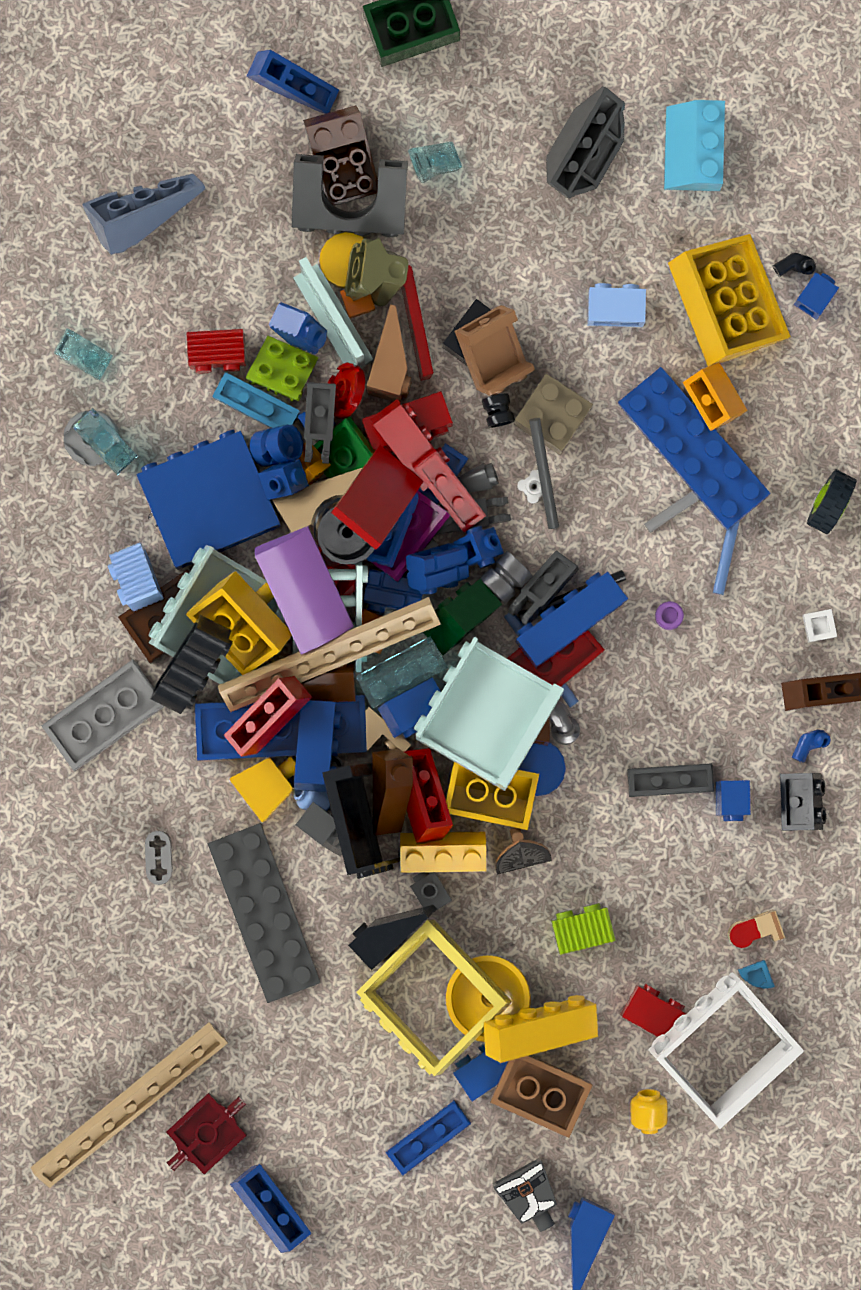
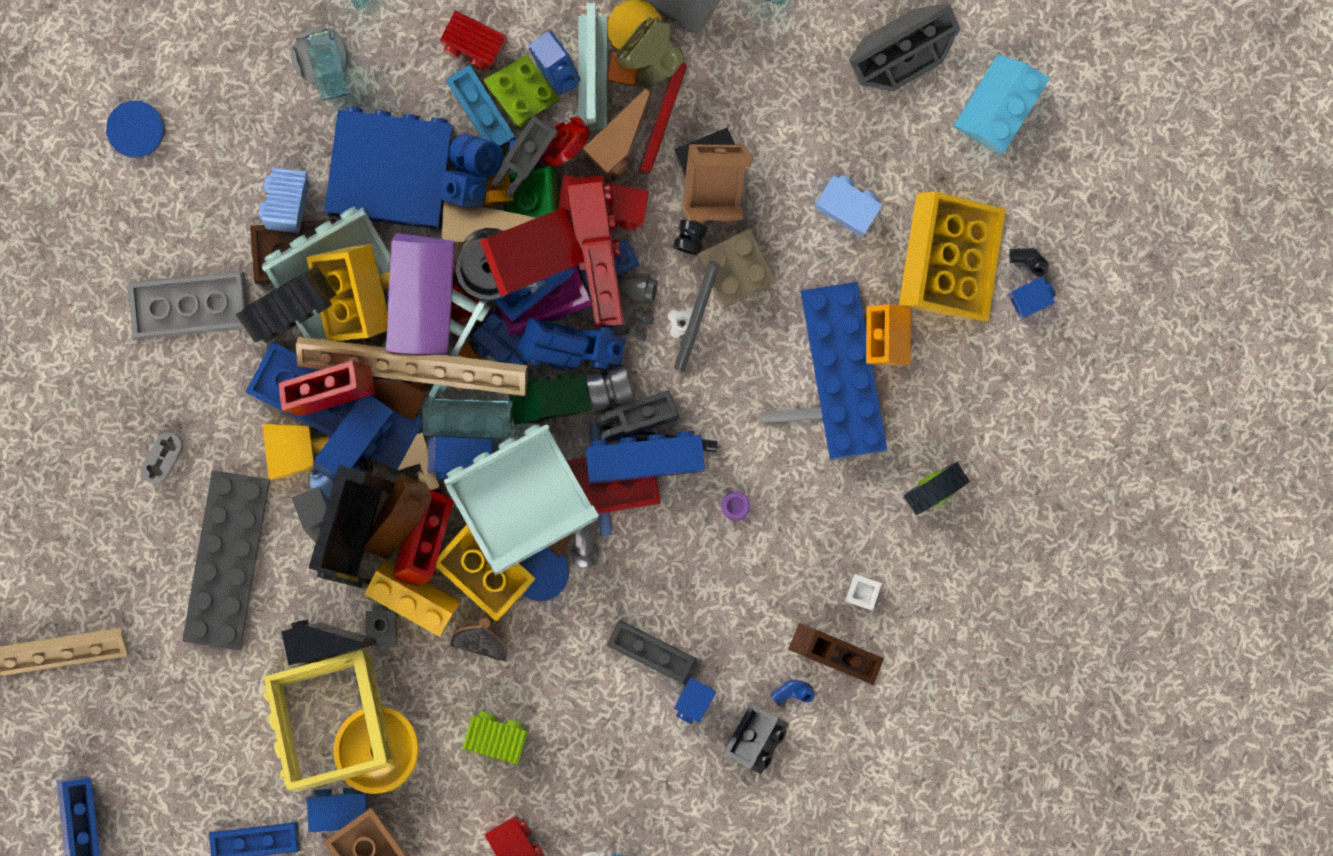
camera: 30 degrees right, 0 degrees up
(206, 1133) = (62, 724): dark red plate -> none
(540, 1028) = (405, 803): yellow brick -> none
(725, 559) = (814, 485): medium blue bar -> none
(755, 927) = (648, 825): leg -> none

